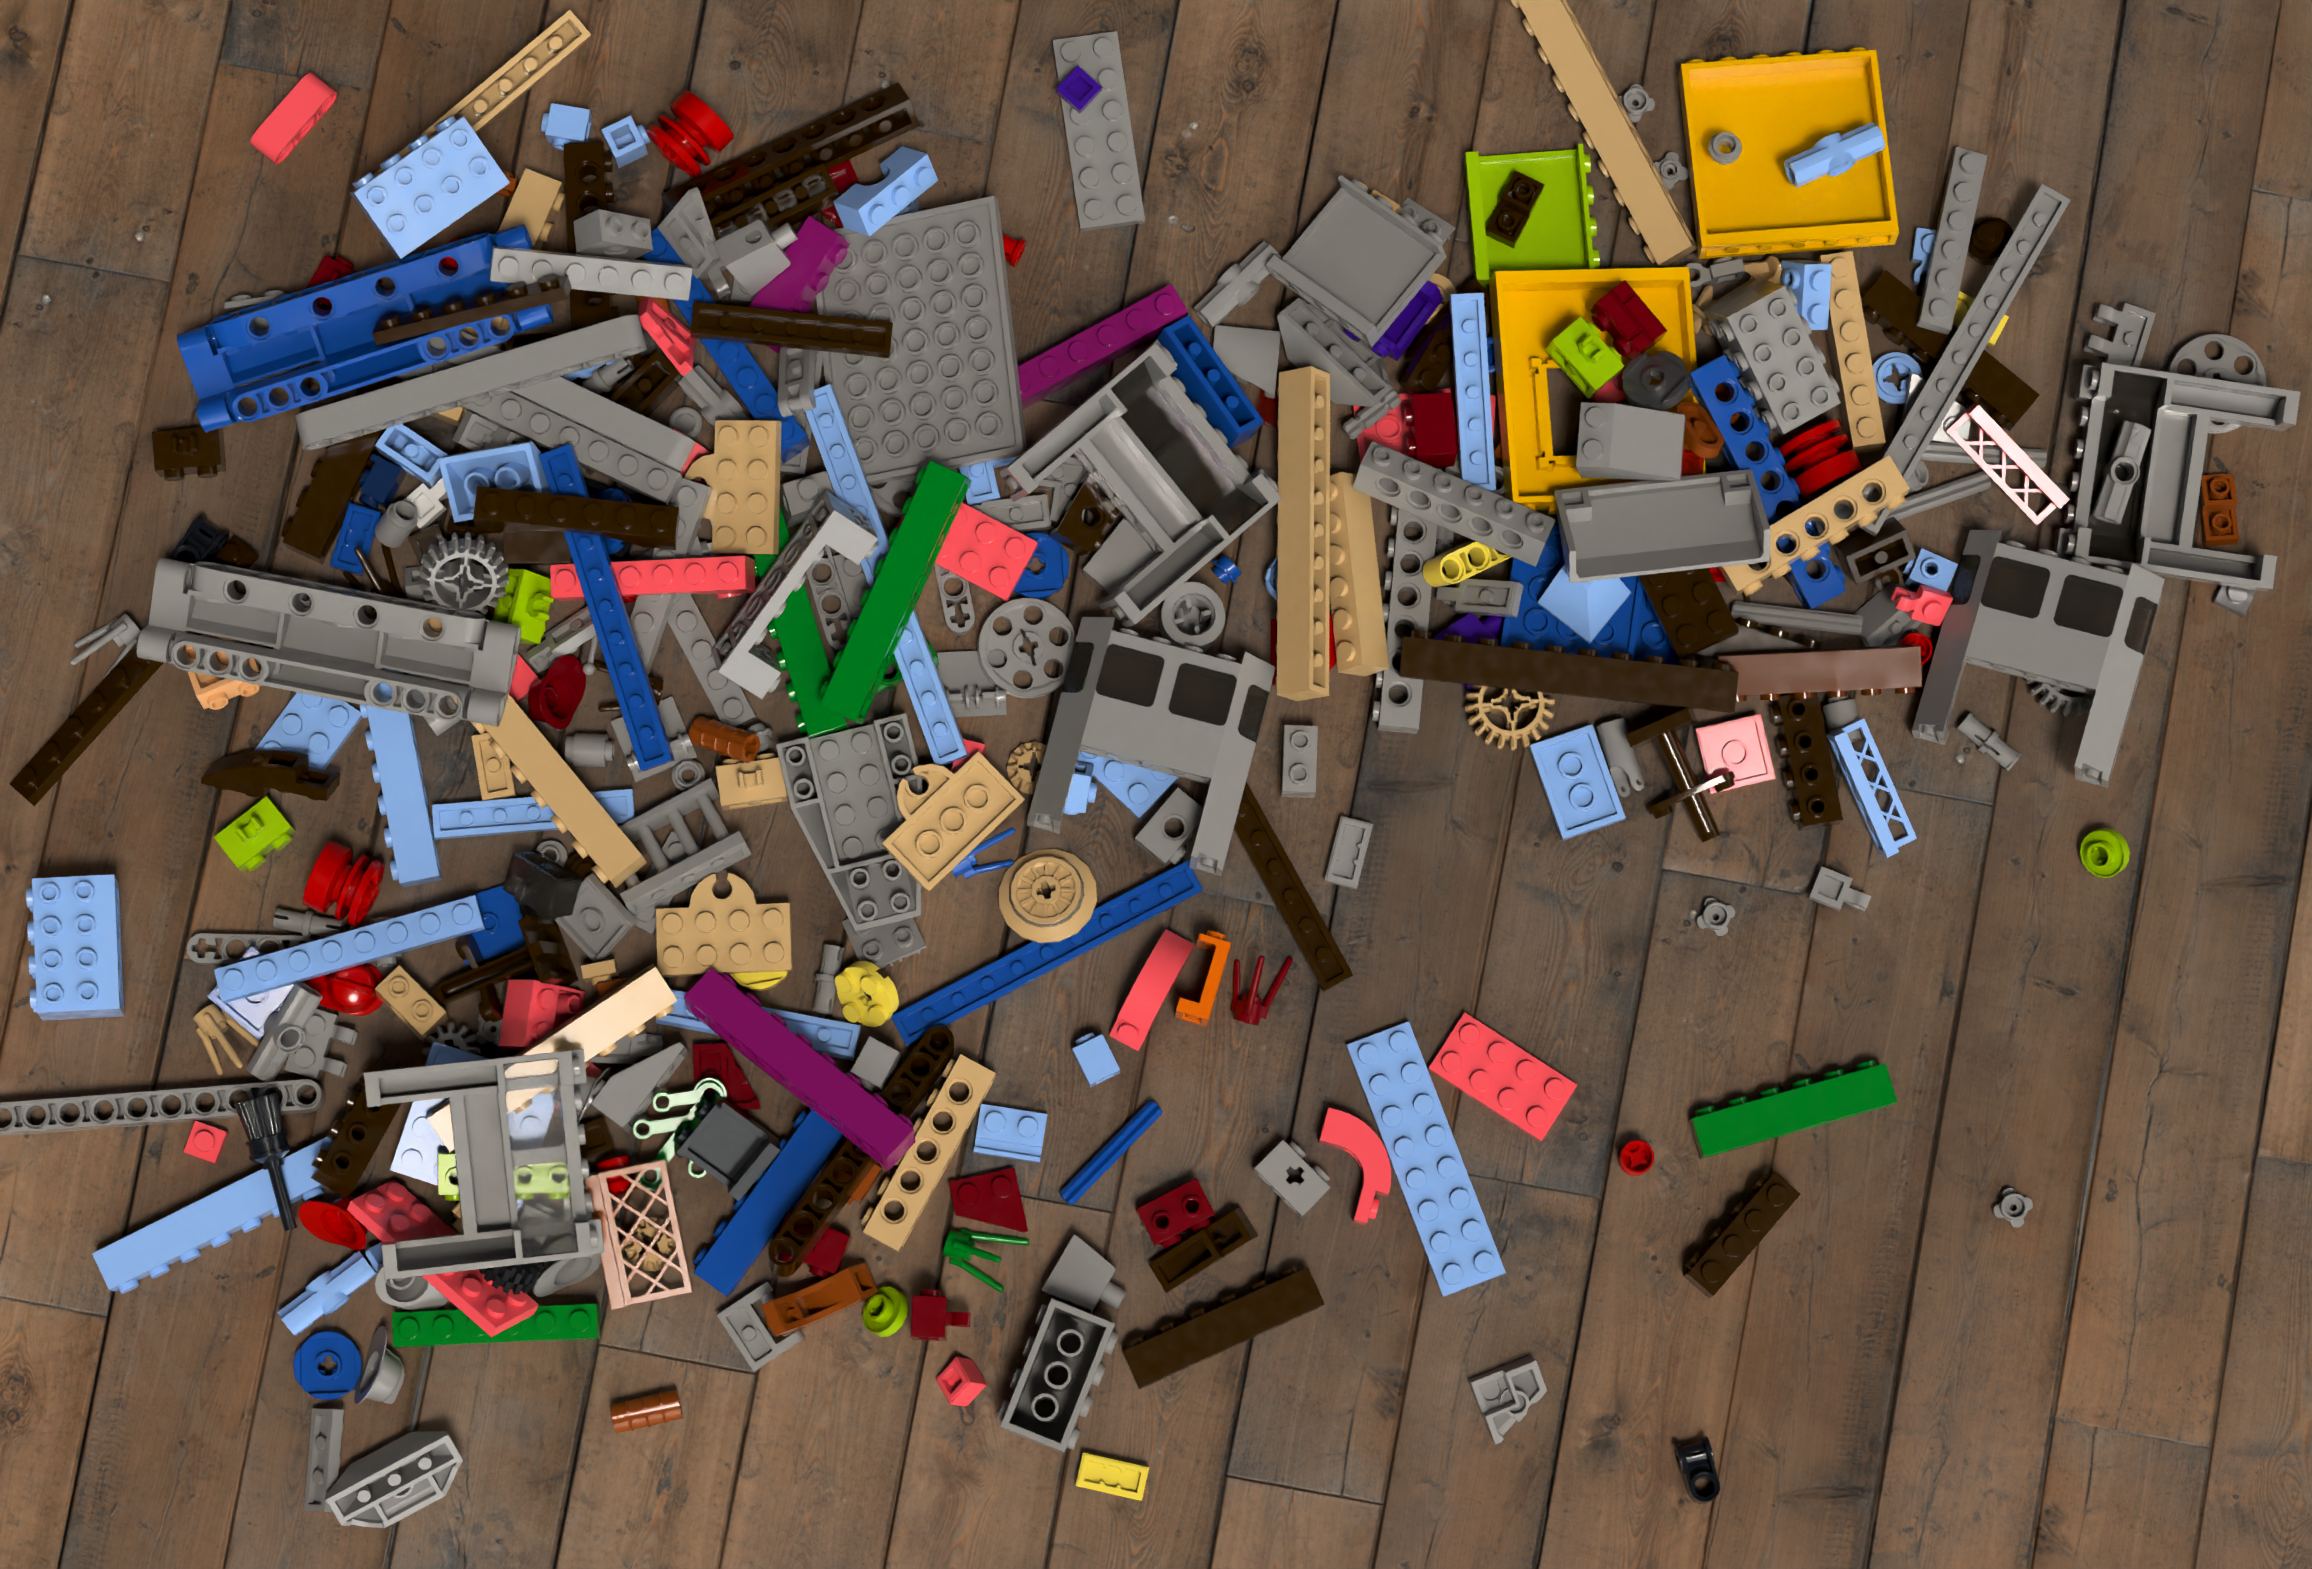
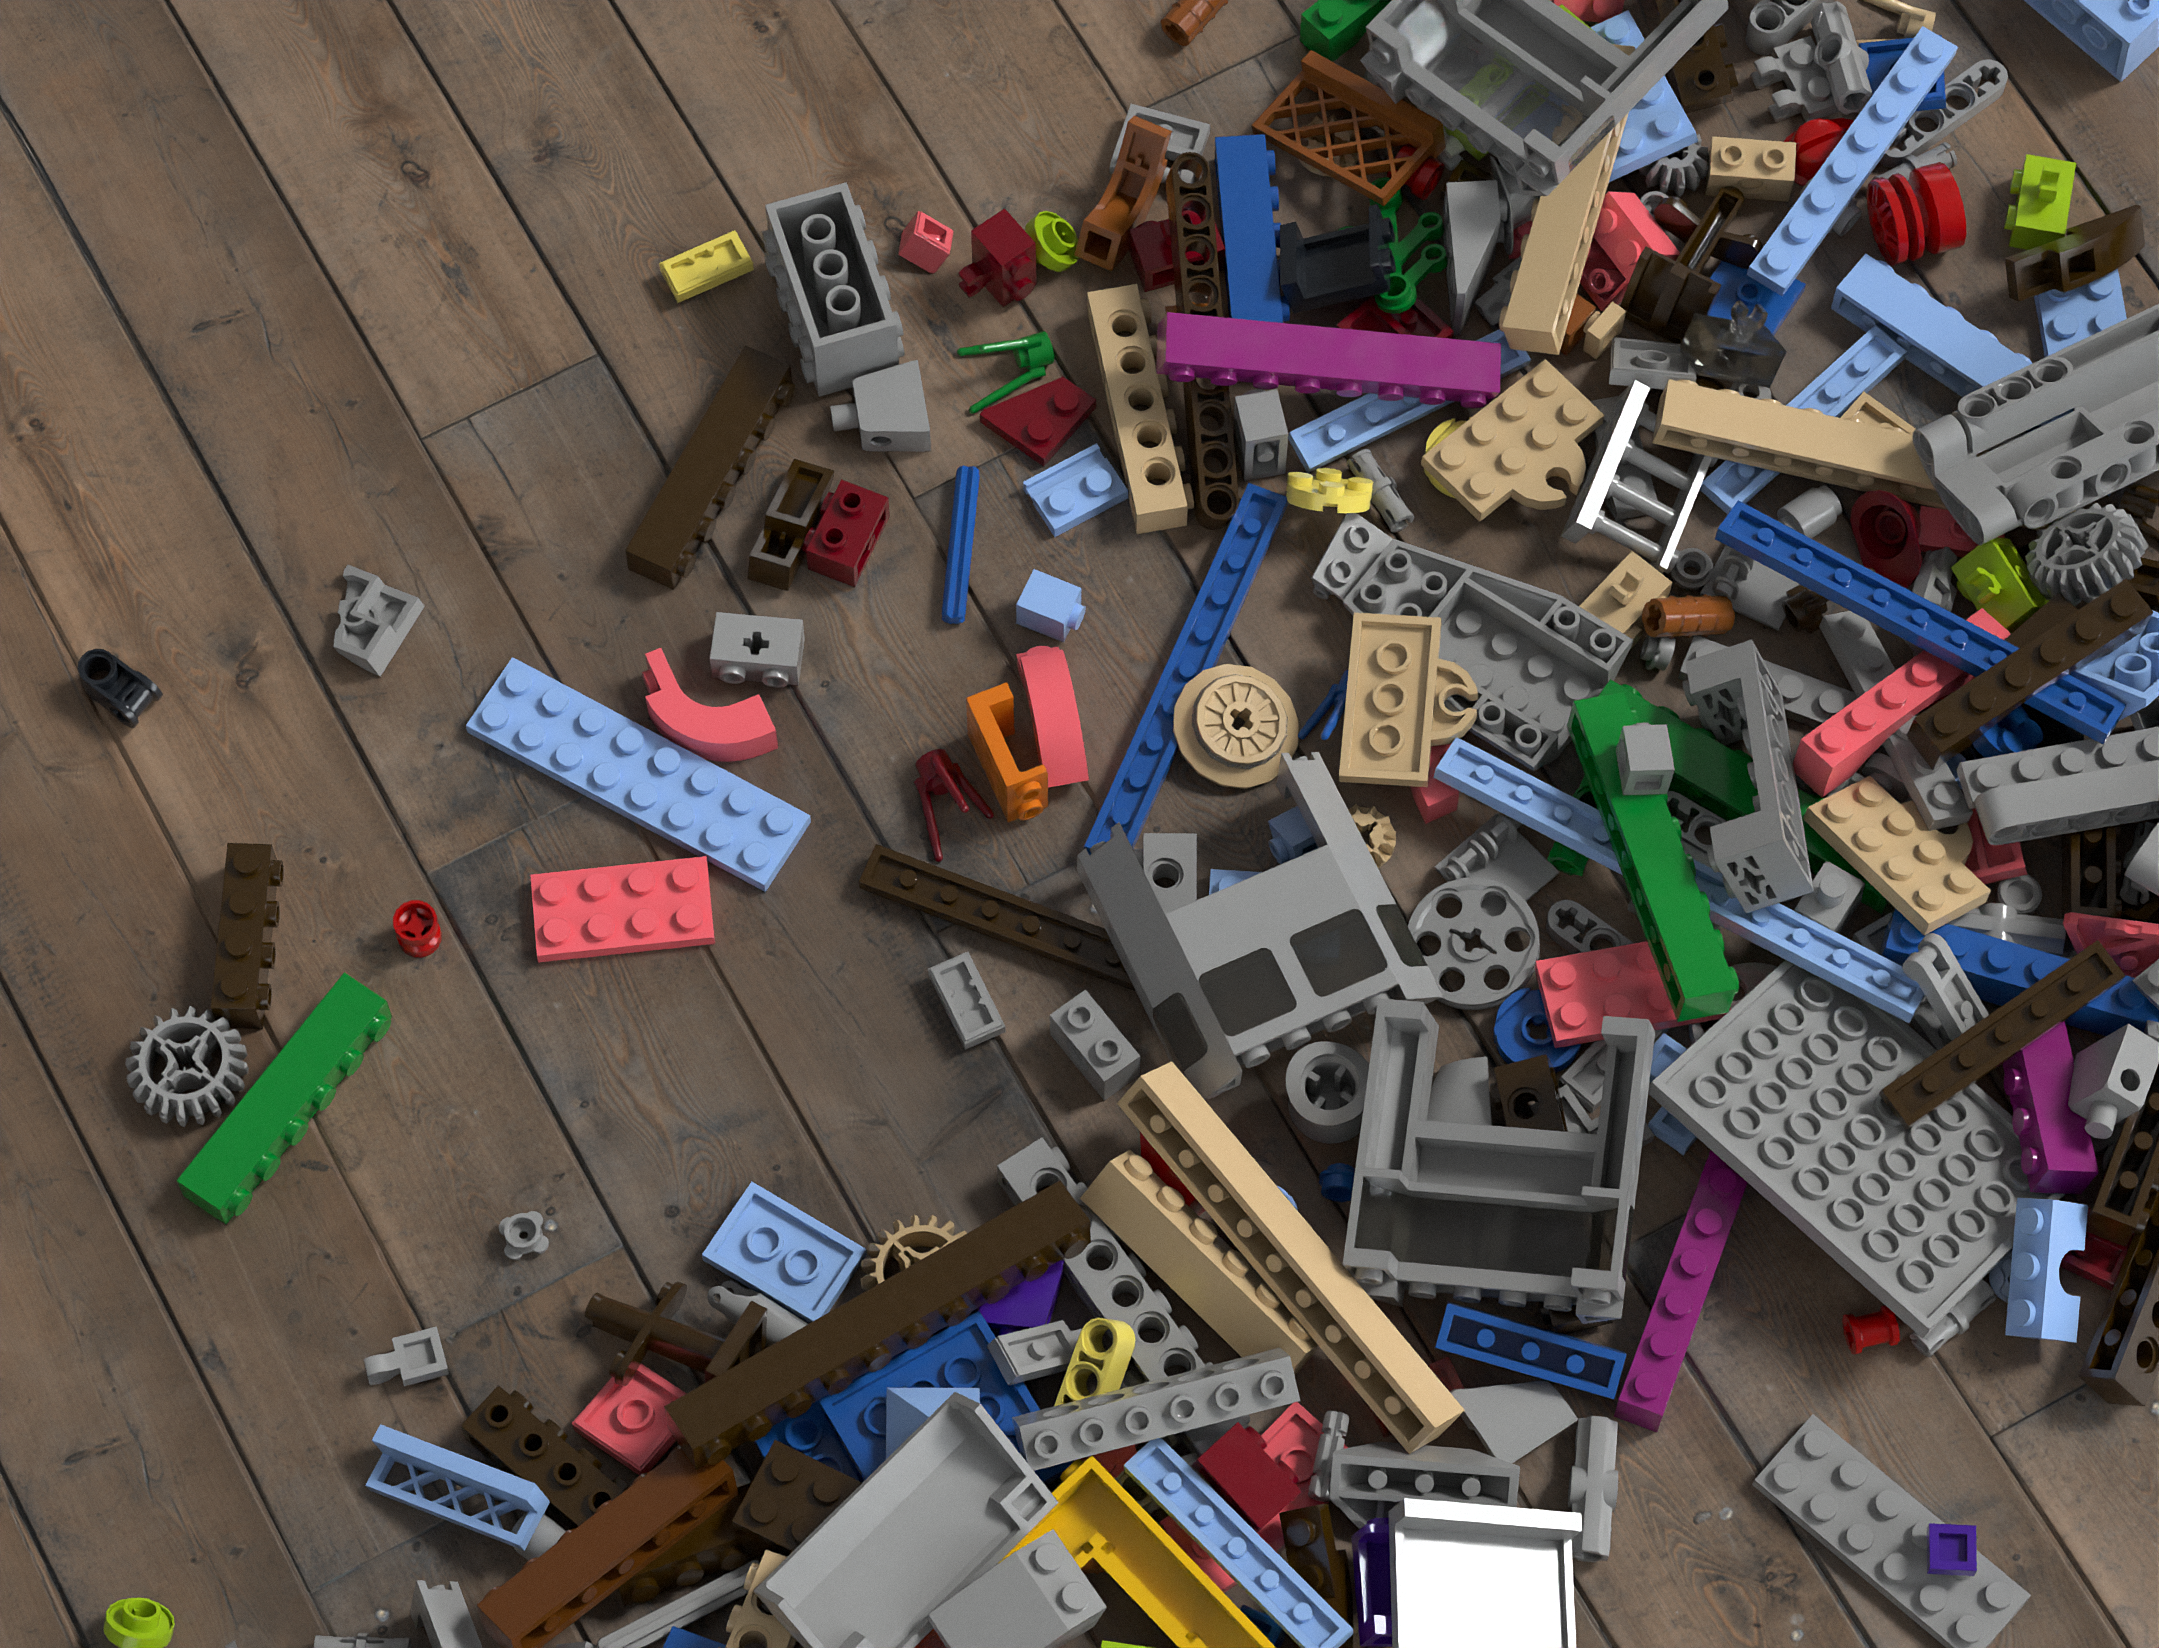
camera: 145 degrees right, 15 degrees down
(853, 642) = (1645, 759): none -> light grey brick
(1838, 1193) = (205, 1037): none -> light grey gear

